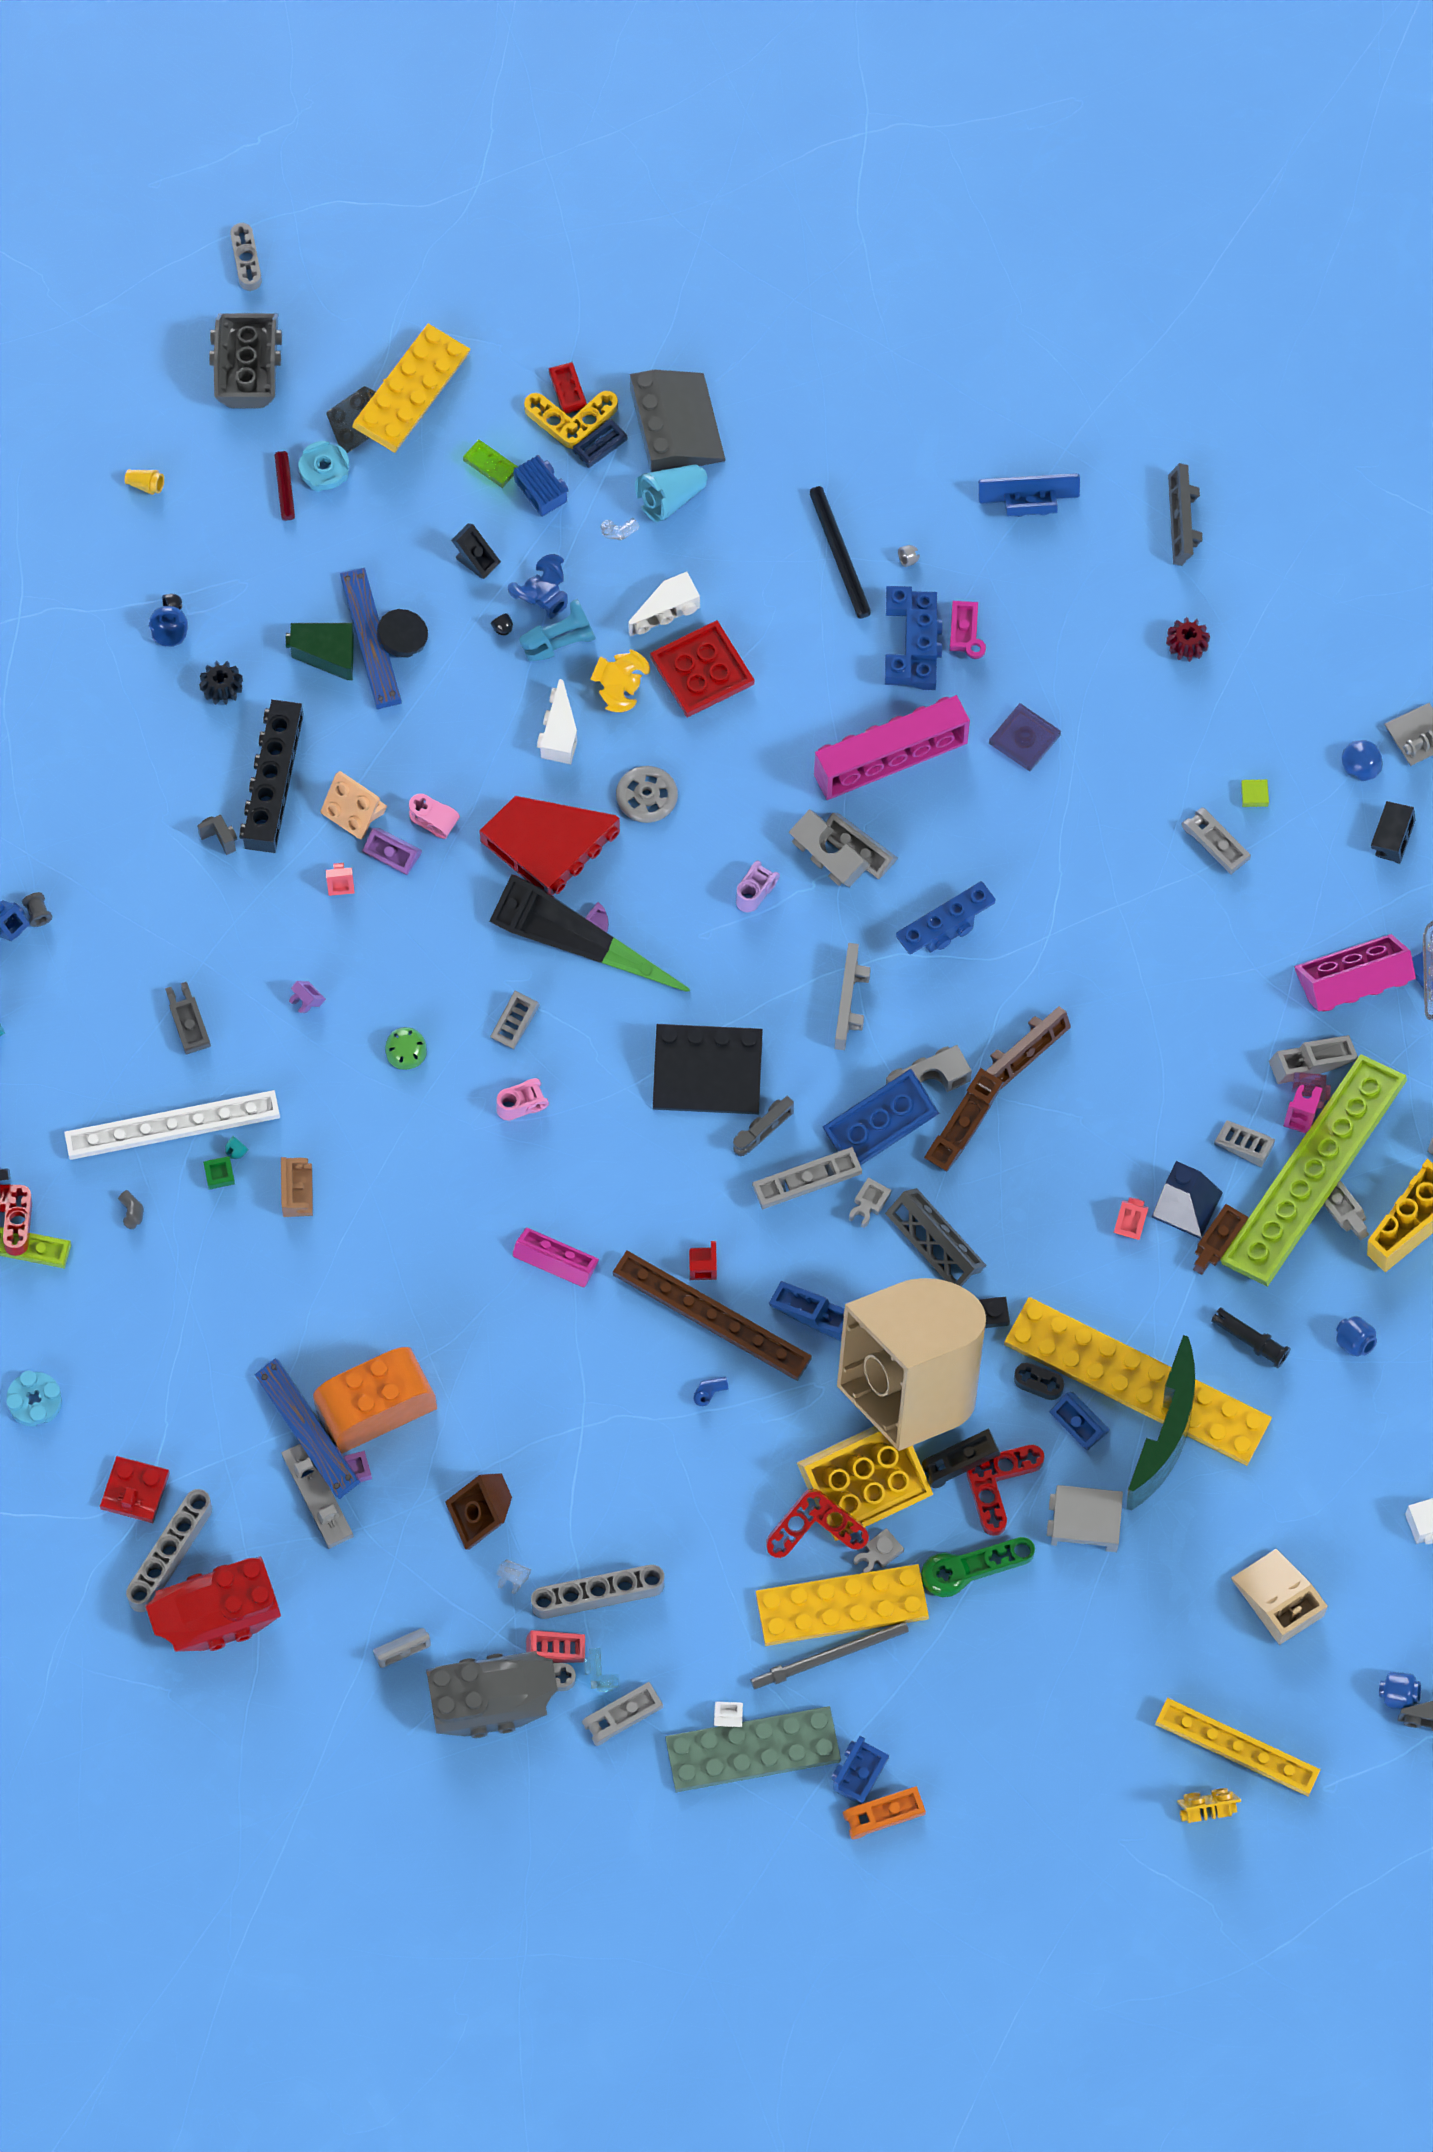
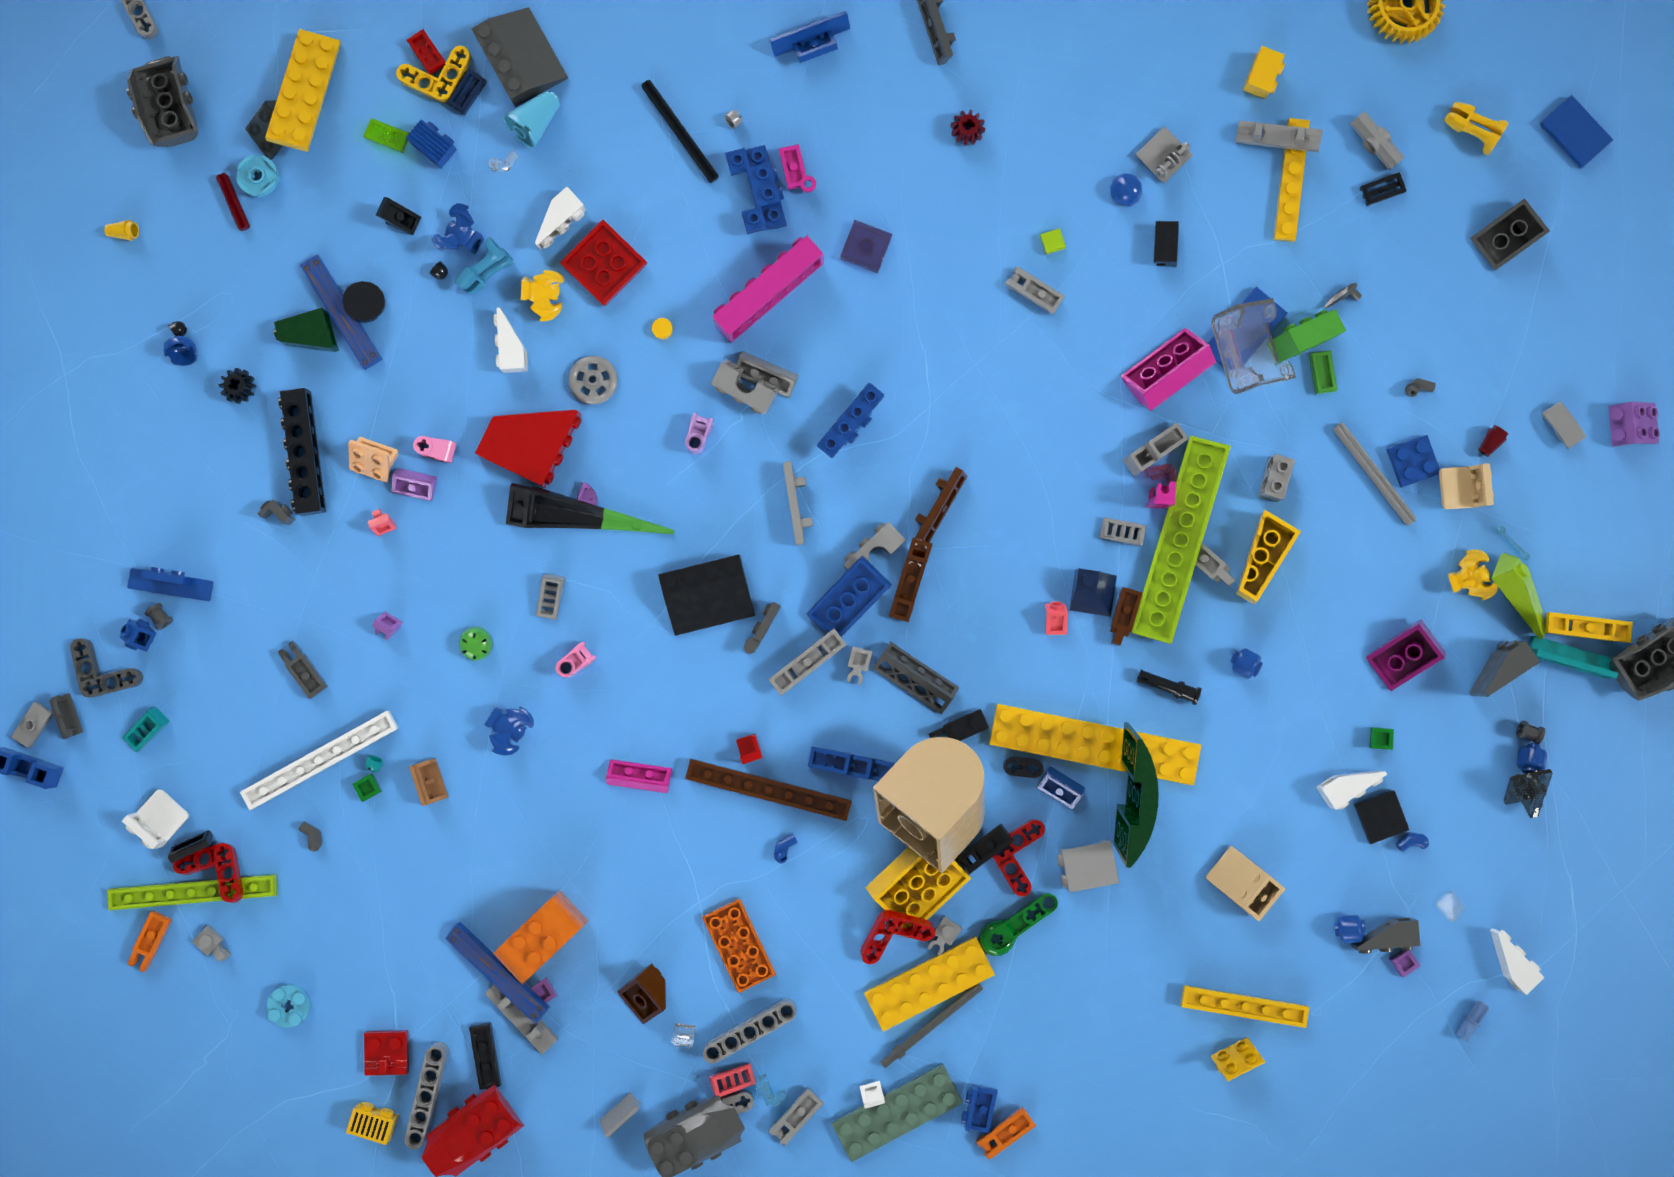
camera: 20 degrees left, 20 degrees up
(63, 874) = (170, 584): none -> blue bracket
(90, 1563) = (372, 1123): none -> yellow brick
(256, 1524) = (485, 1055): none -> black tile
(415, 1149) = (506, 727): none -> blue animal
(616, 1490) = (739, 945): none -> orange tile
(749, 760) = (662, 328): none -> yellow tile

